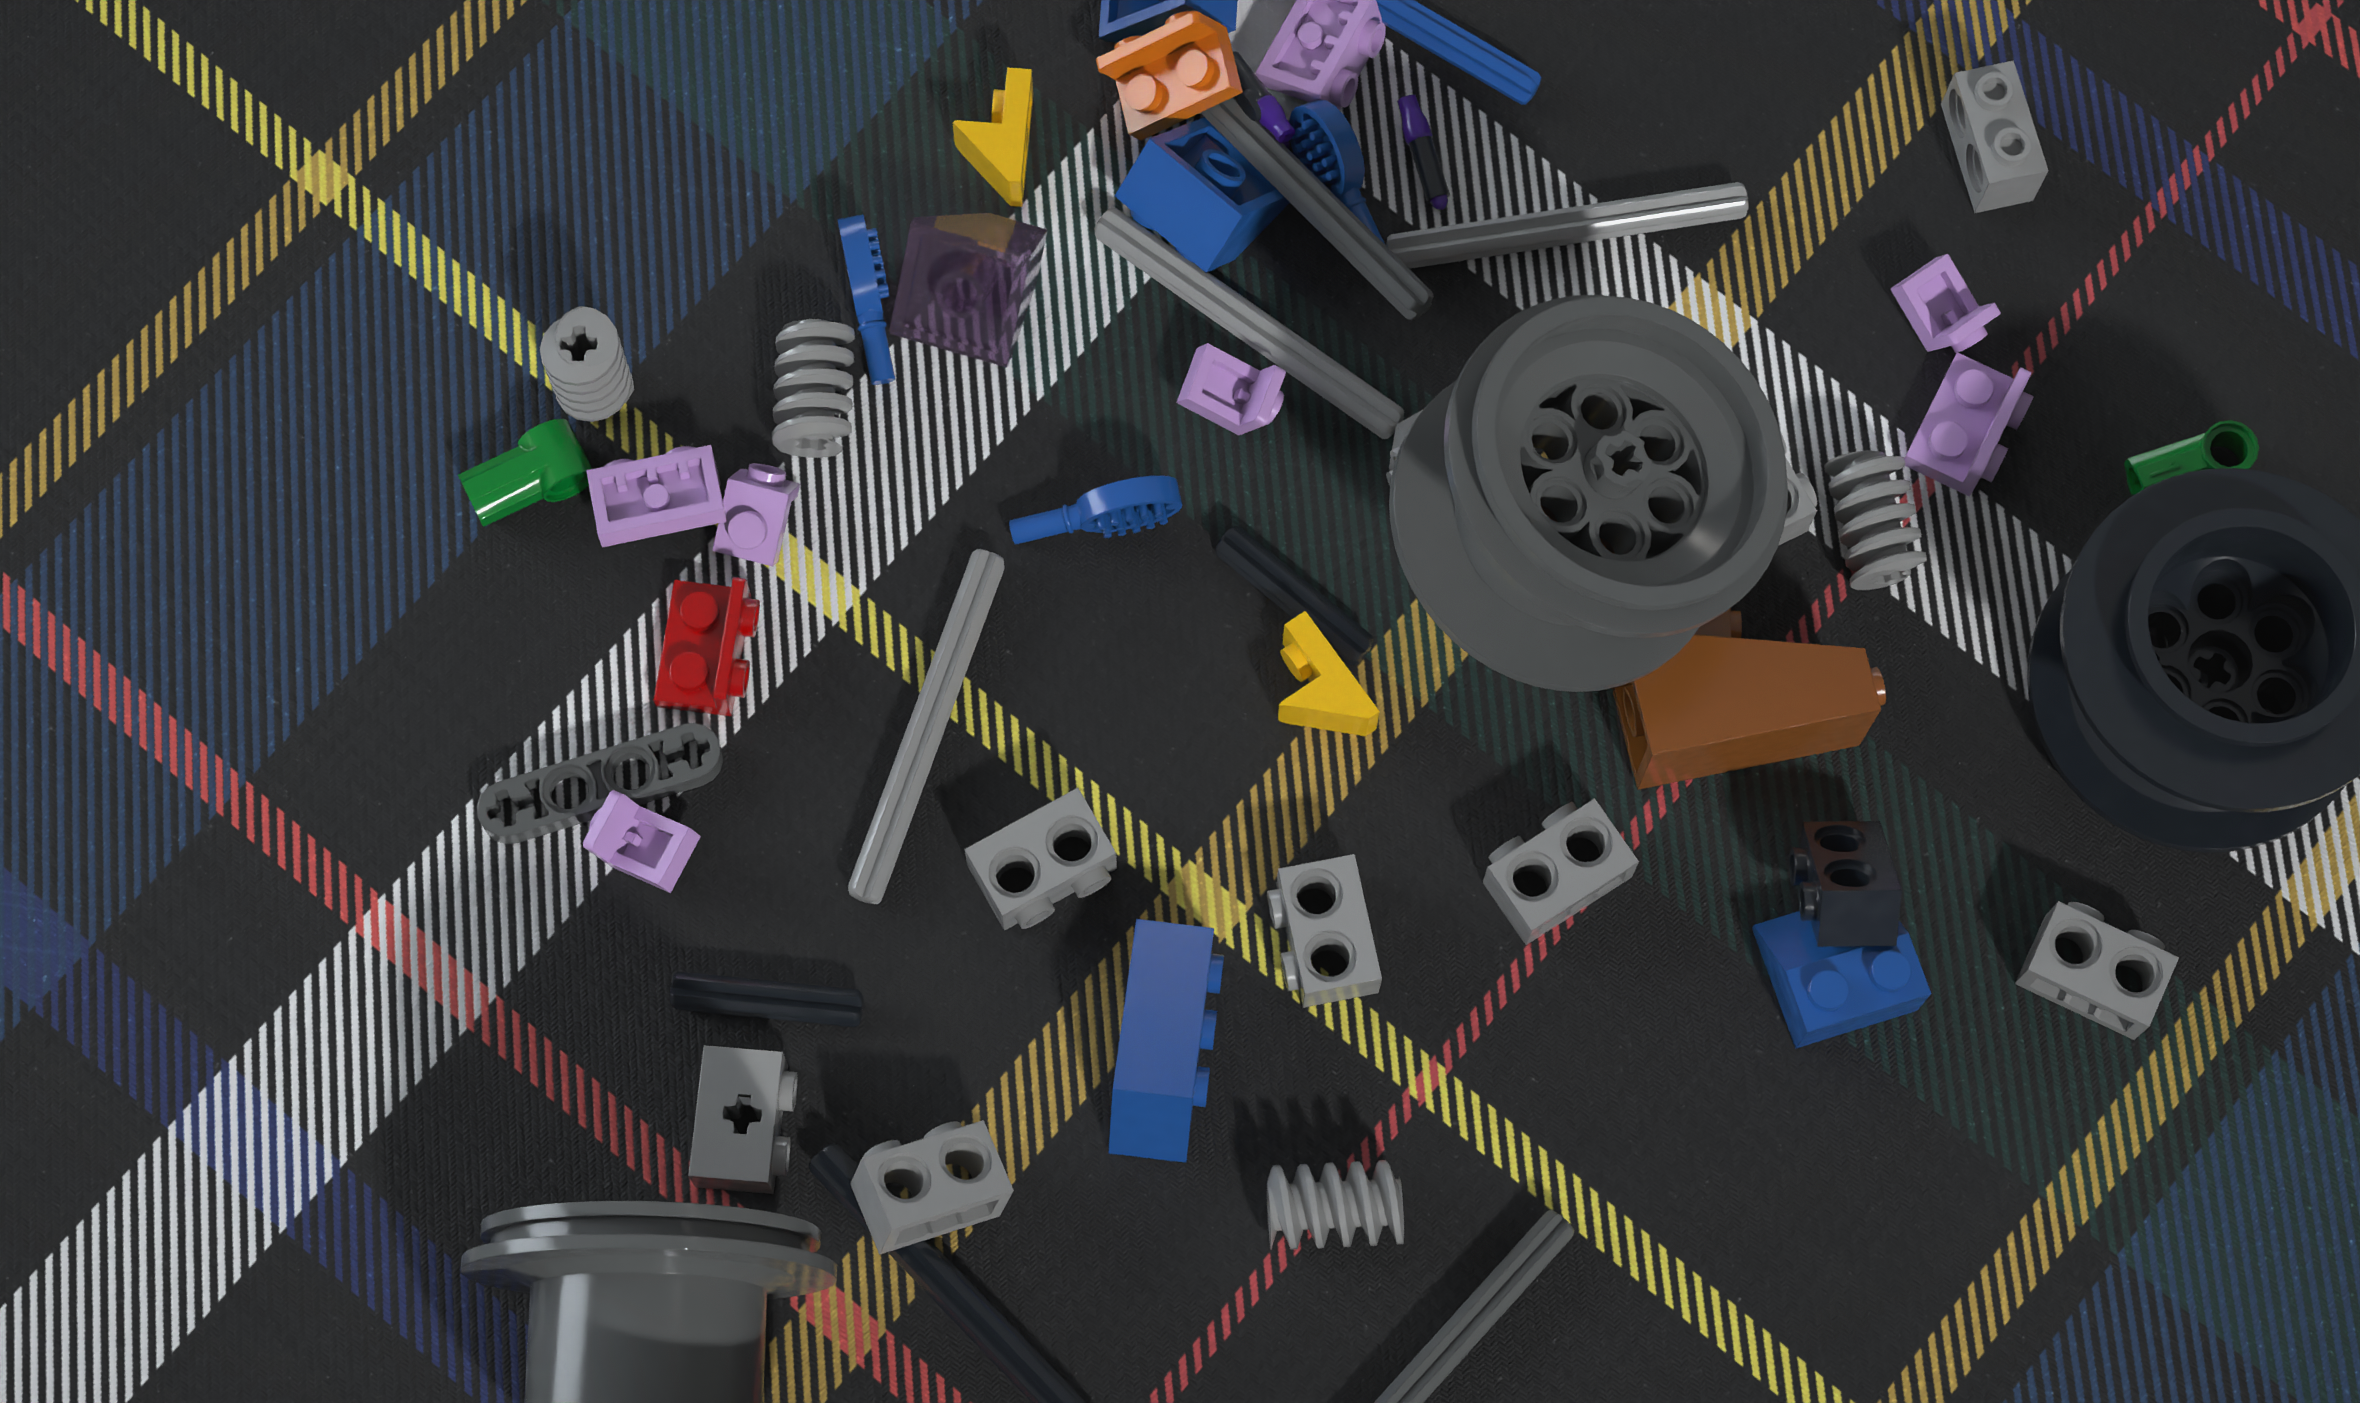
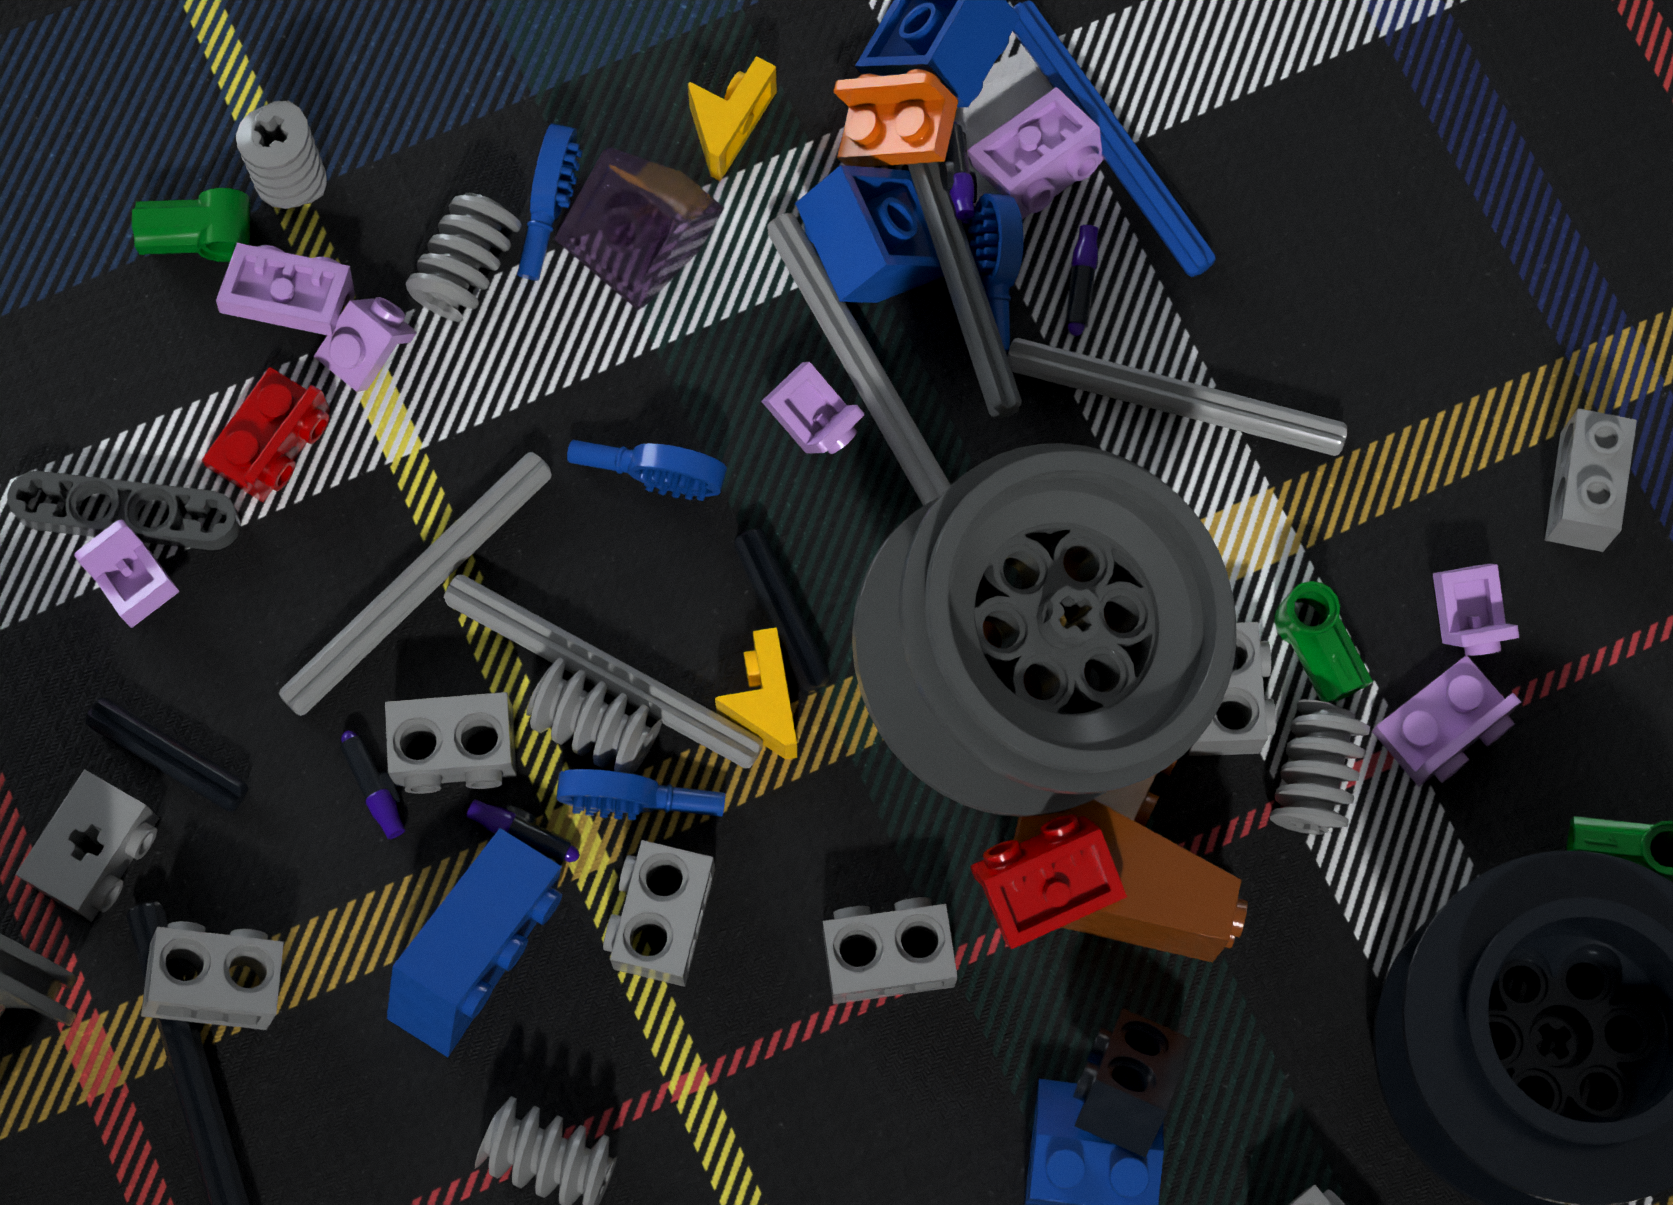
camera: 25 degrees right, 0 degrees up
(987, 938) = (375, 785): none -> piece
(1123, 915) = (523, 827): none -> piece
(1151, 729) = (553, 642): none -> light grey axle
(1167, 778) = (591, 720): none -> light grey piece
(1241, 833) = (631, 794): none -> blue piece
(1692, 724) = (1048, 879): none -> red bracket
(1824, 403) = (1325, 648): none -> green piece

